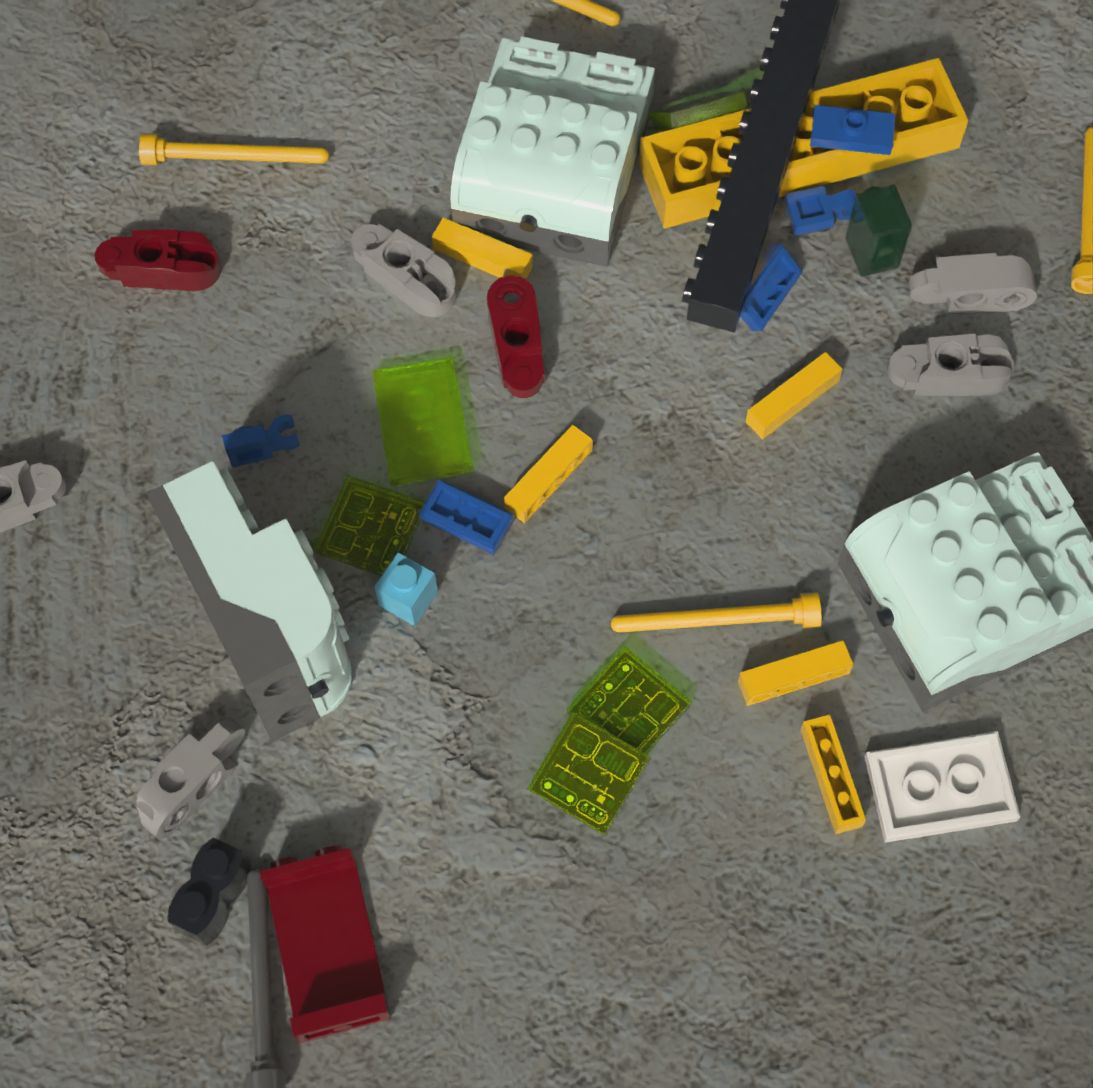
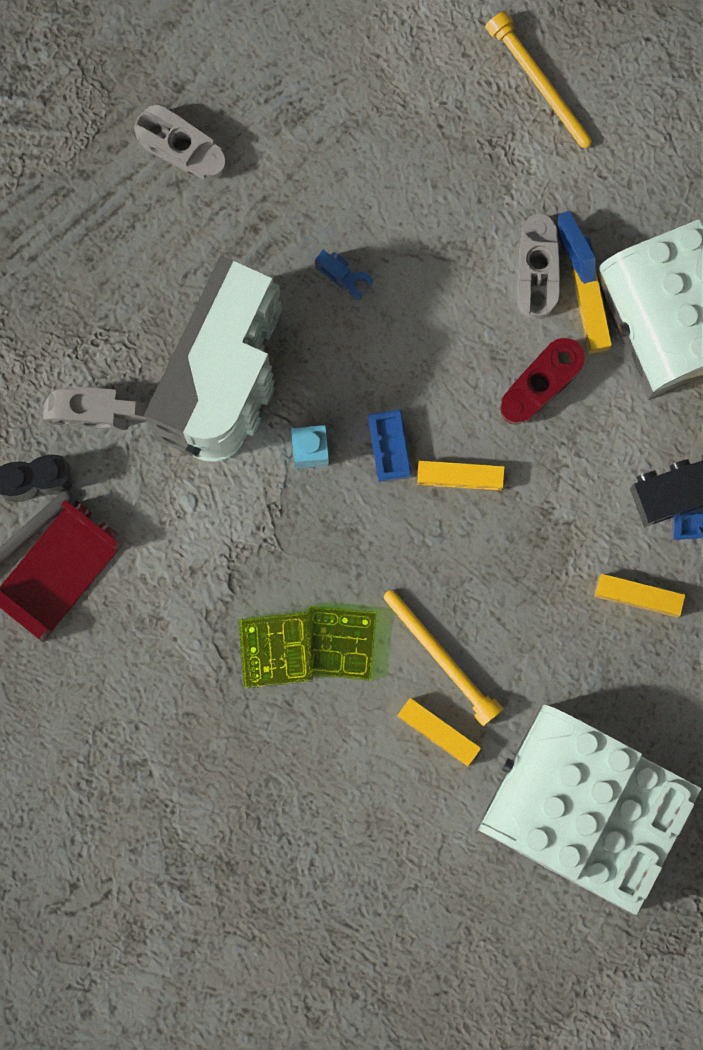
camera: 50 degrees right, 15 degrees up
(184, 261) = (404, 79): dark red piece -> none
(369, 526) = (338, 389): clear neon green tile -> none
(416, 216) = (577, 247): none -> blue plate
(422, 421) = (437, 364): clear neon green tile -> none
(833, 774) = (387, 801): yellow piece -> none
(941, 786) = (431, 875): white tile -> none

